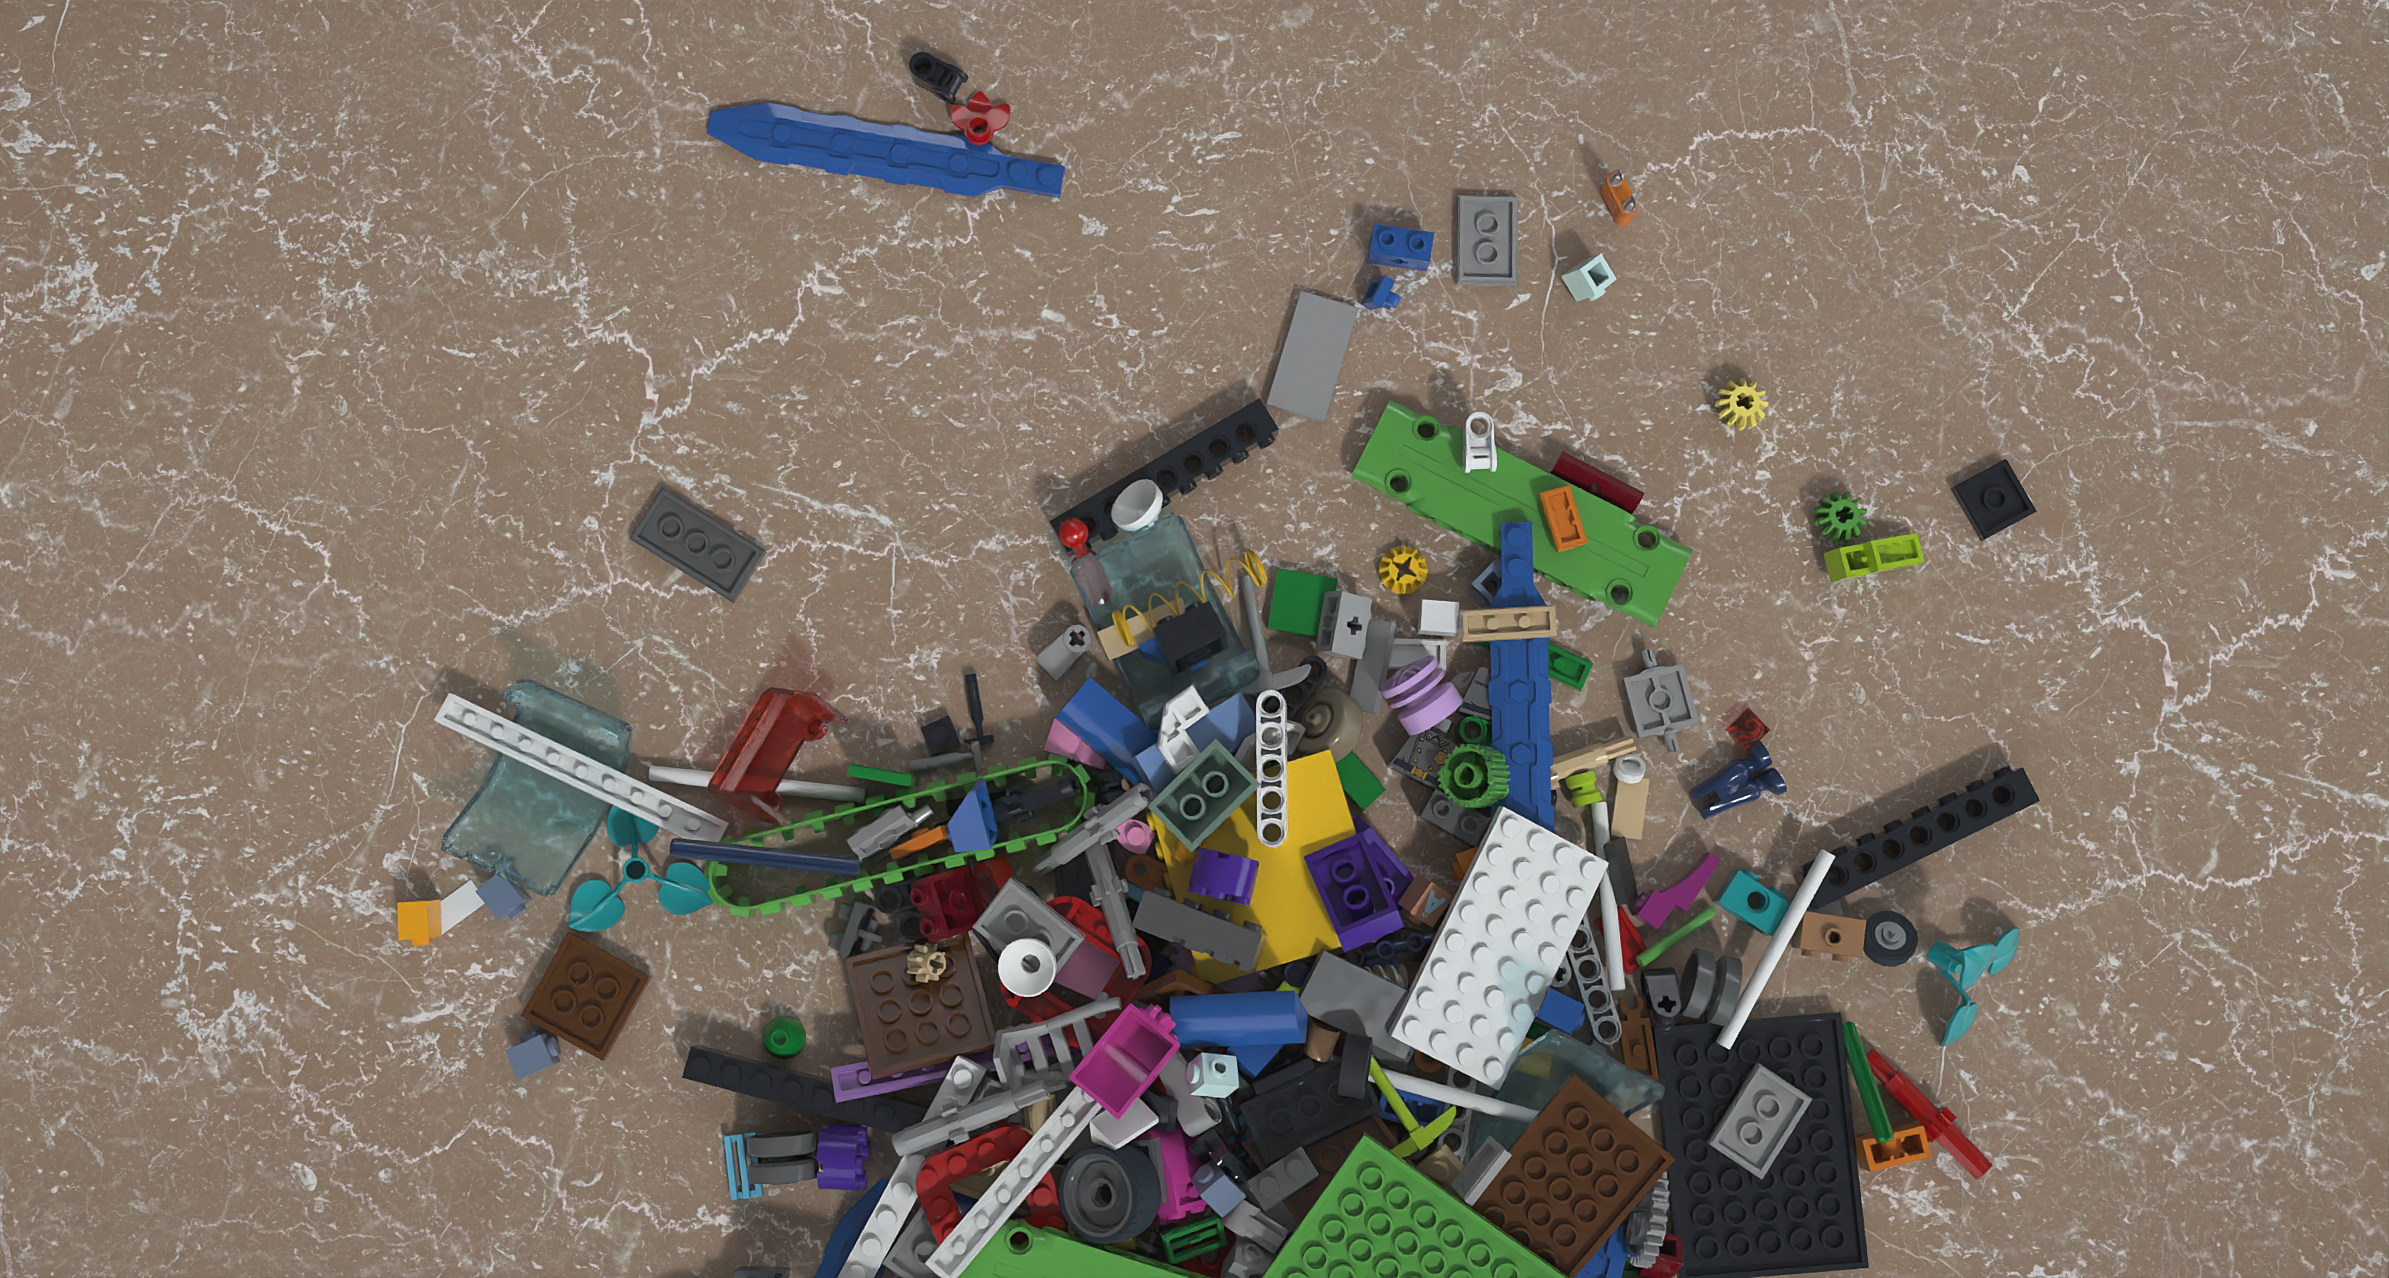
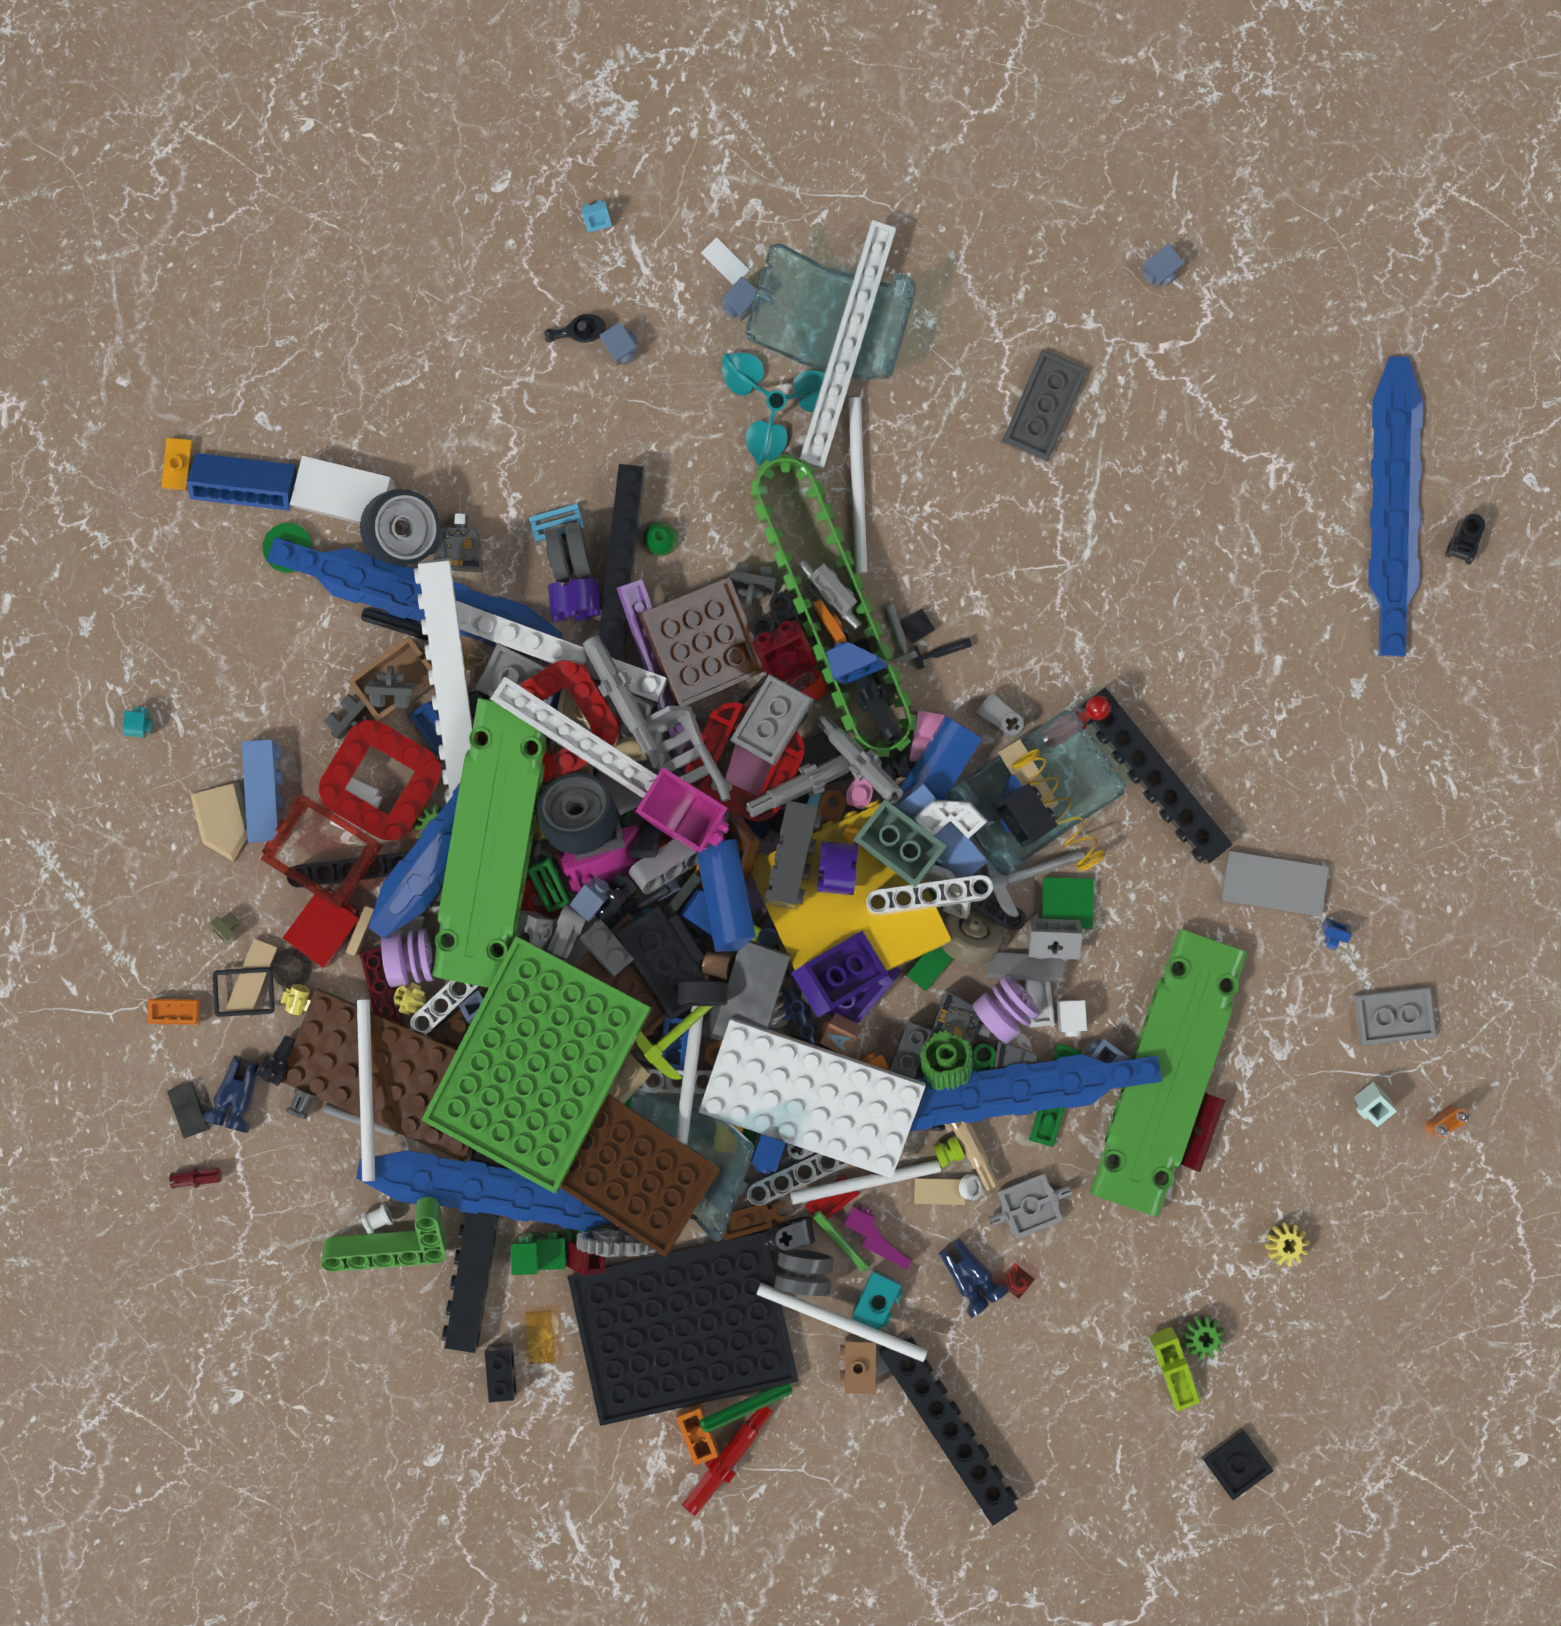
camera: 85 degrees right, 5 degrees up
(369, 1062) = (596, 216): none -> medium azure tile
(419, 921) = (711, 236): light orange brick -> none
(506, 1099) = (582, 329): none -> black piece
(554, 380) = (1162, 267): none -> sand blue brick
(586, 996) = (671, 377): reddish brown plate -> none
(765, 856) = (801, 501): dark blue axle -> none
(767, 749) = (888, 488): clear red windscreen -> none
(883, 775) = (879, 582): green tile -> none
(926, 962) = (735, 642): tan gear -> none
(980, 116) = (1438, 579): red plate -> none
(1014, 974) = (735, 714): white piece -> none
(1115, 1133) = (624, 811): white slope -> none
(1137, 505) = (1128, 757): white piece -> none
(1212, 1075) = (679, 881): light aqua brick -> none
(1400, 247) = (1377, 944): blue brick -> none
(1407, 583) = (1103, 970): yellow gear -> none
(1479, 450) = (1219, 1030): white piece -> none
(1480, 1170) = (634, 1104): light grey tile -> none
(1509, 623) = (1075, 1073): tan tile -> none
(1563, 518) = (1168, 1106): orange plate -> none
(1620, 870) = (887, 1189): pearl dark grey tile -> none
(1759, 1120) = (703, 1324): light grey tile -> none
(1889, 938) = (863, 1414): black wheel -> none
(1971, 963) = (851, 1479): teal plant -> none

